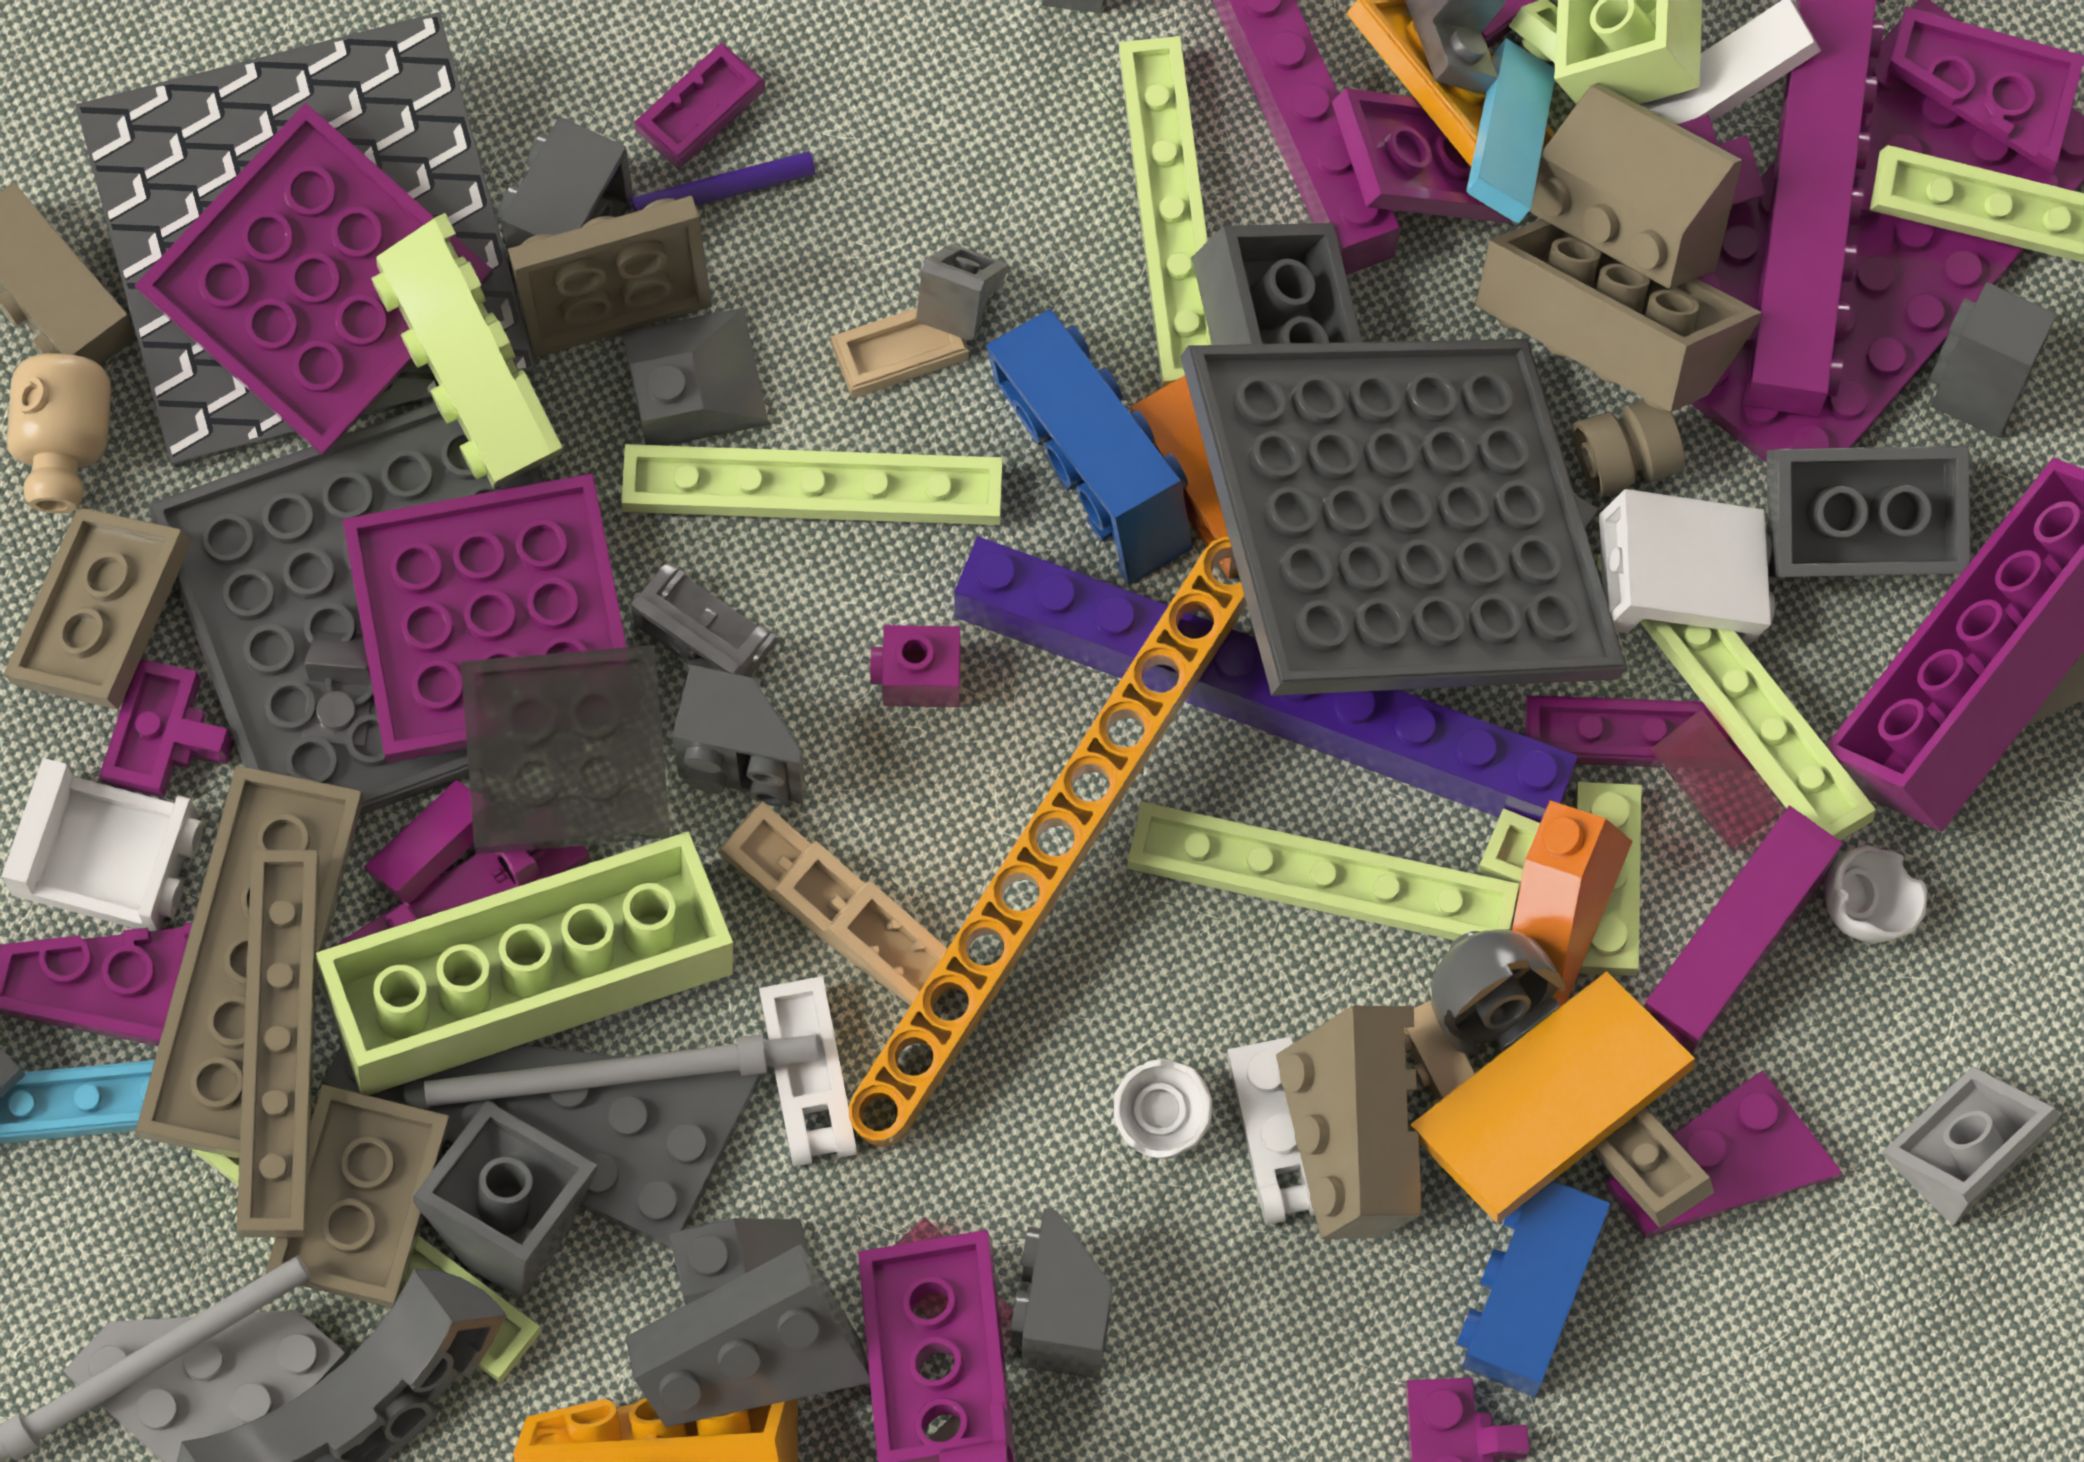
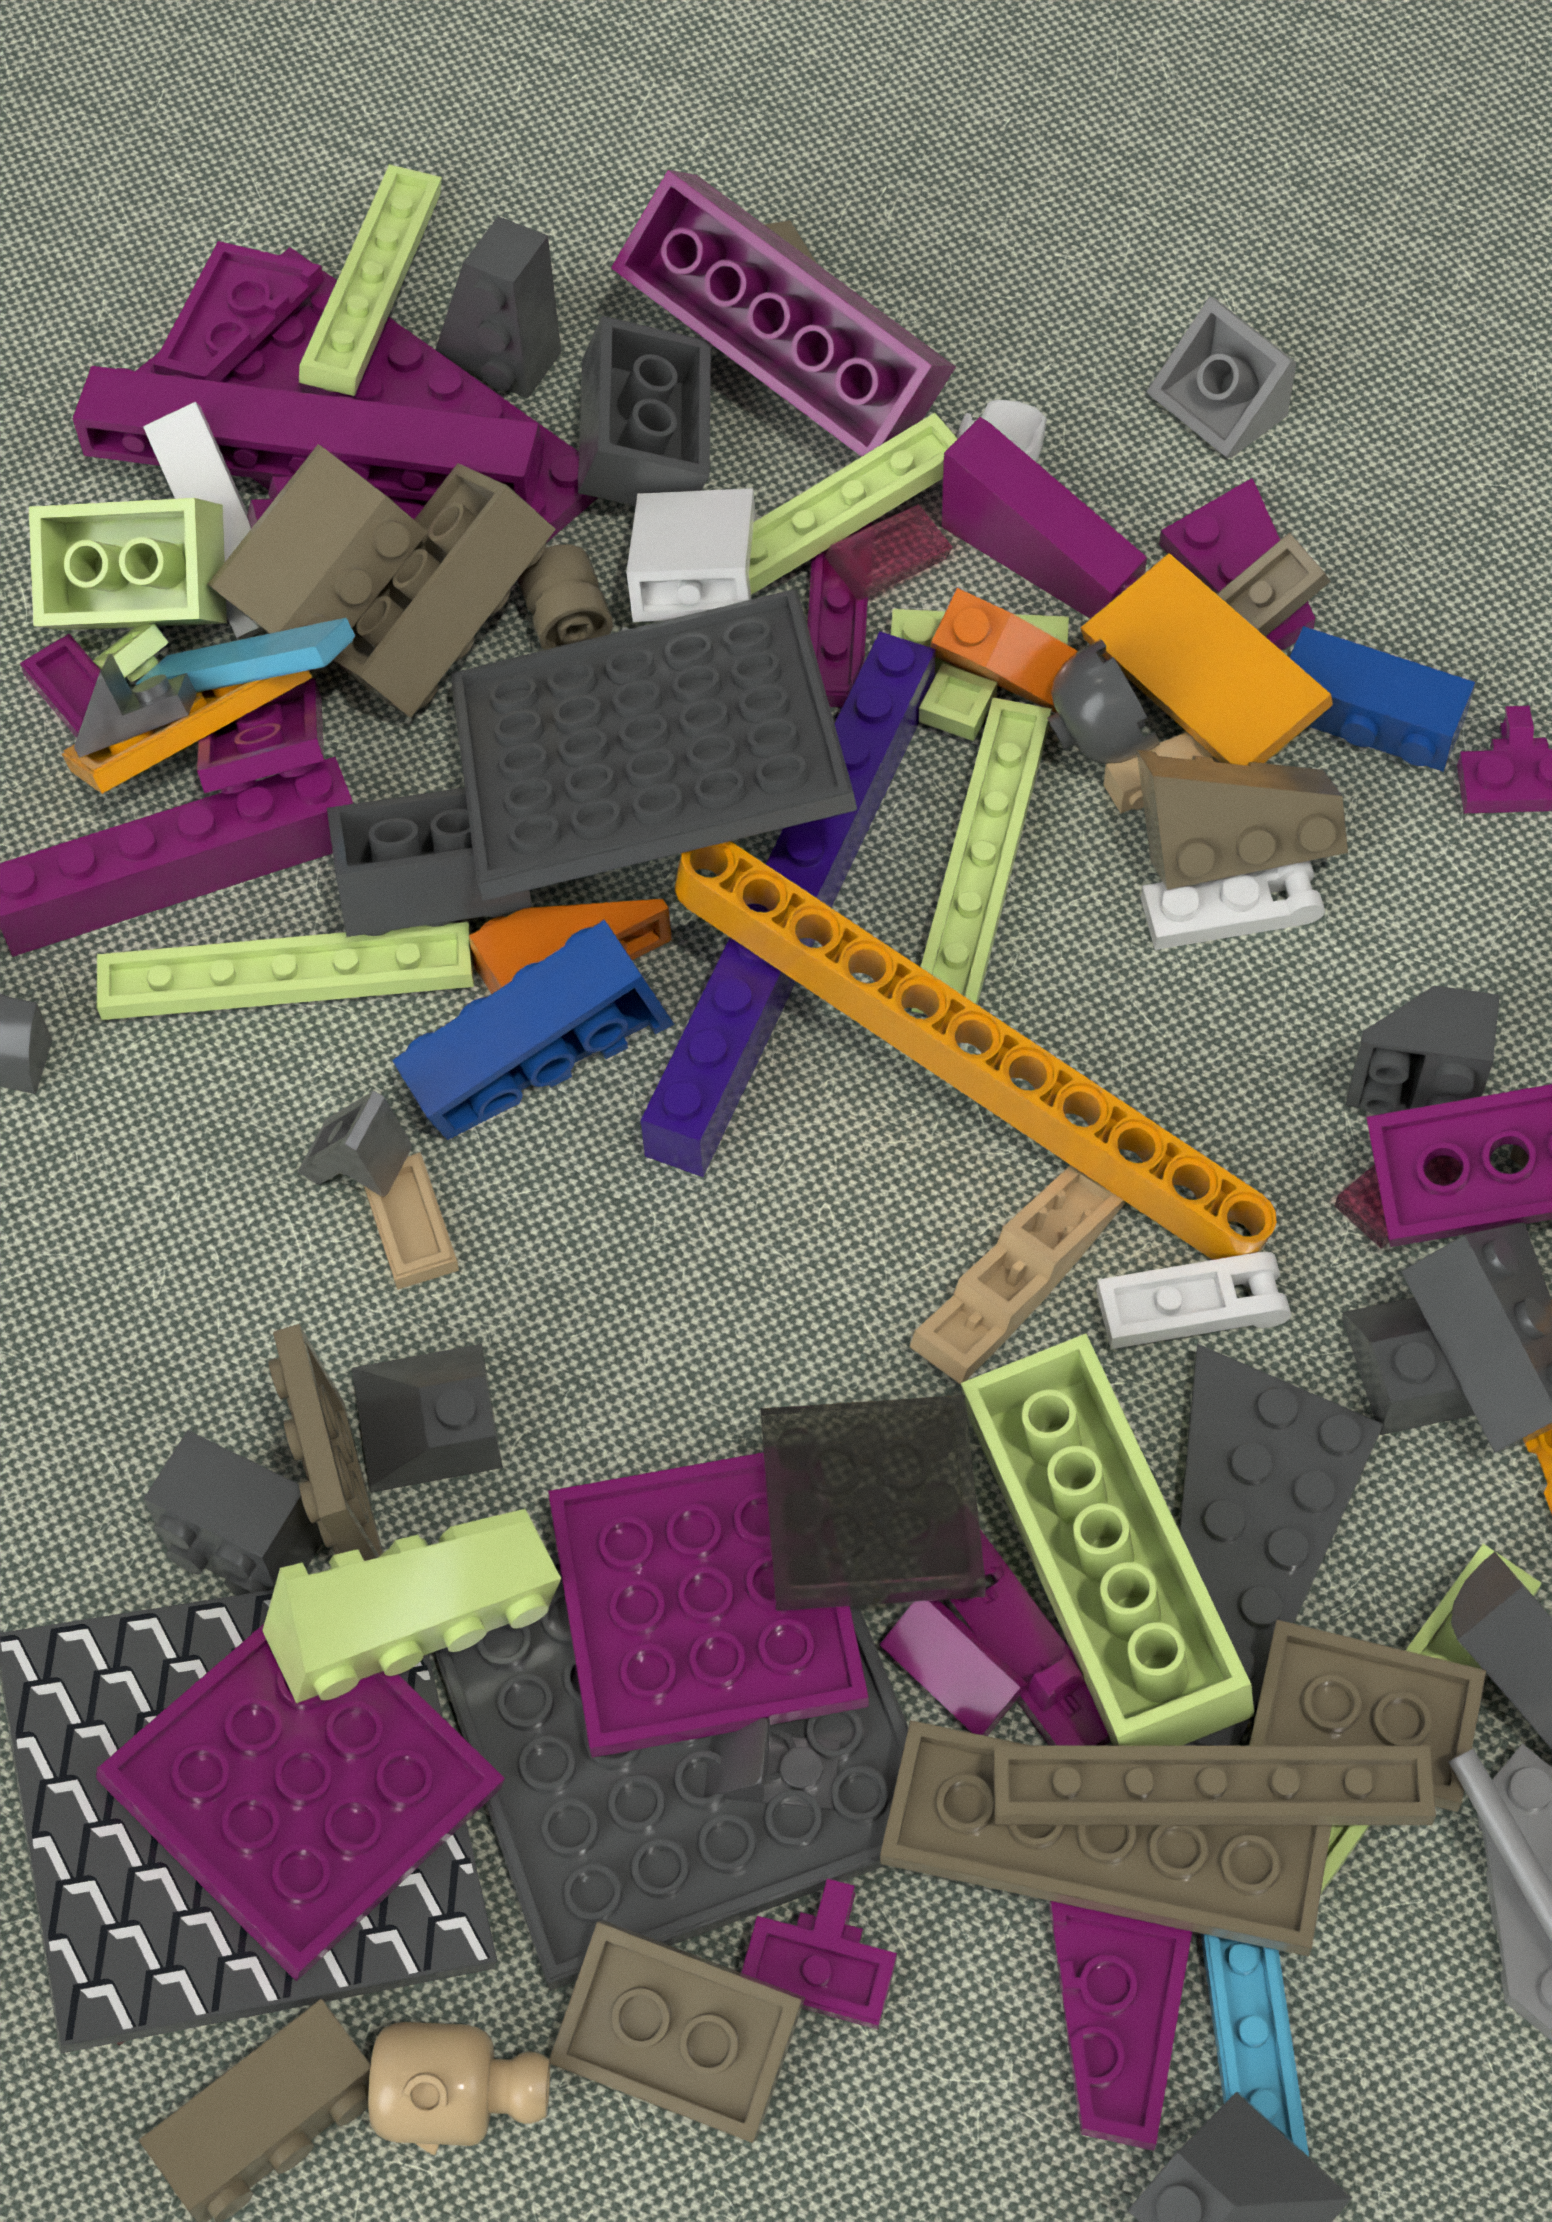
camera: 85 degrees left, 10 degrees down
(101, 849) = (962, 2019): white panel -> none
(505, 1197) = (1356, 1566): dark grey slope -> none
(699, 106) = (116, 1406): magenta plate -> none
(699, 625) = (717, 1399): flat silver hinge -> none
(735, 182) = (206, 1372): dark purple bar -> none
(735, 740) = (853, 1338): dark grey slope -> none
(749, 1055) = (1189, 1344): light grey bar -> none
(812, 484) = (559, 1301): yellowish green plate -> none
(918, 666) = (764, 1193): magenta brick -> none
(1163, 1108) = (1225, 981): white hair -> none

